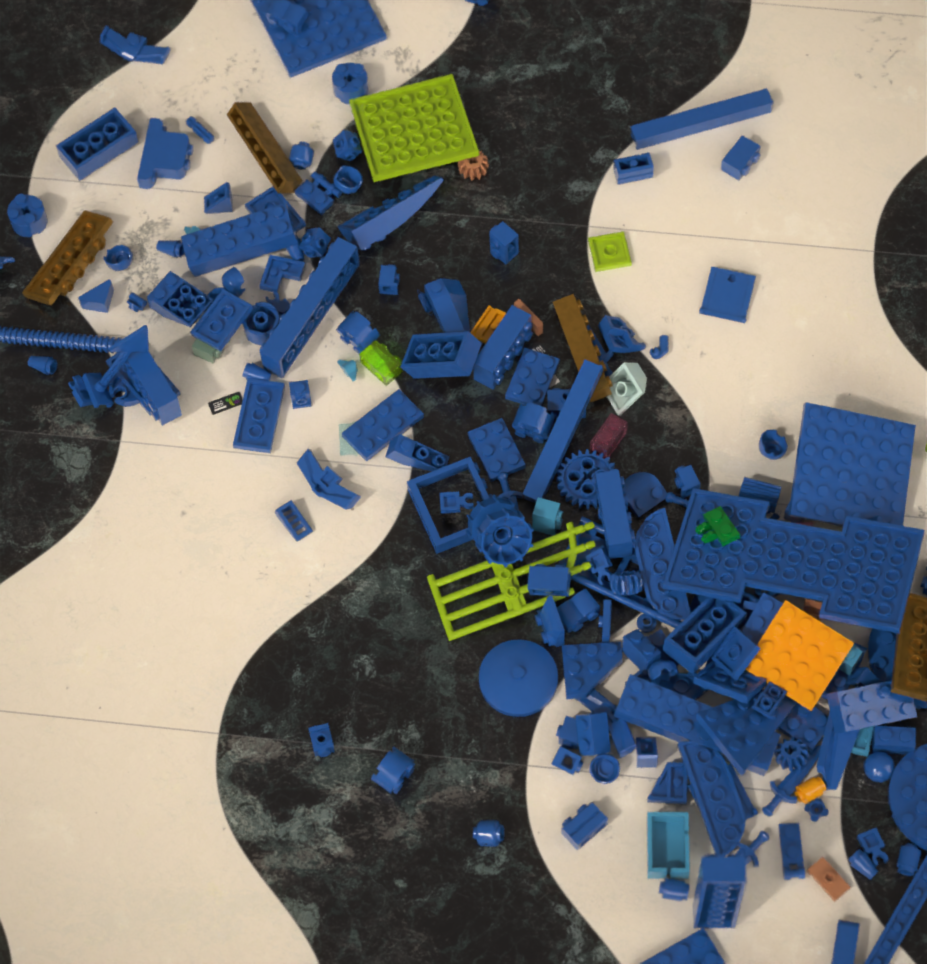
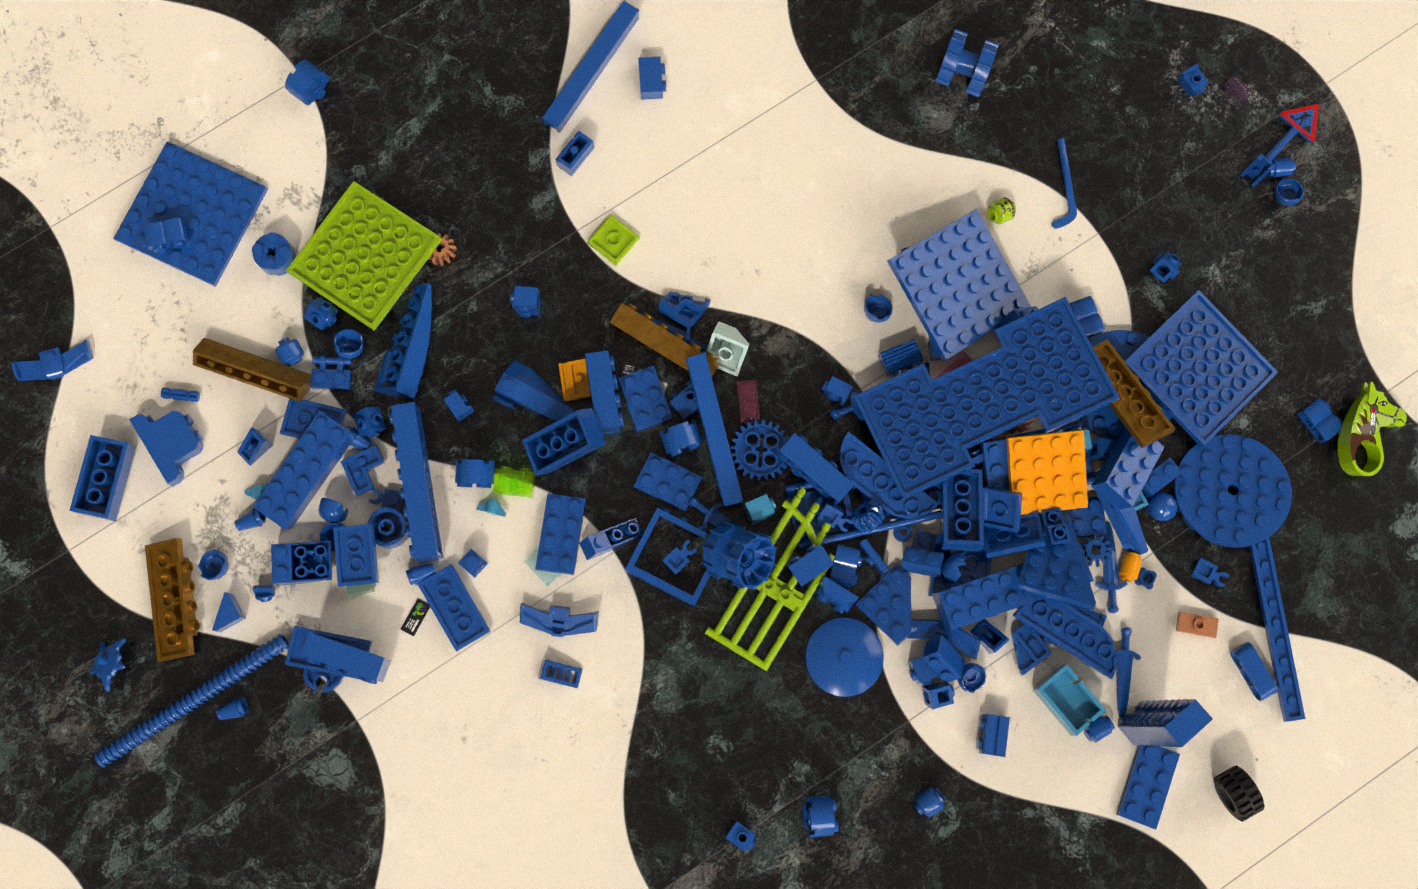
camera: 50 degrees left, 15 degrees up
(27, 215) = (89, 584): blue brick -> none
(80, 391) = (291, 708): blue plate -> none
(96, 384) = (298, 691): blue piece -> none
(537, 326) = (591, 347): nougat plate -> none
(643, 492) = (813, 425): blue slope -> none
(662, 349) = (725, 292): blue arm -> none
(720, 525) = (906, 414): green hinge -> none
(727, 294) = (737, 206): blue container -> none
(791, 850) = (1154, 625): blue plate -> none
(863, 864) = (1209, 592): blue cone -> none
(908, 859) = (1241, 562): blue brick -> none

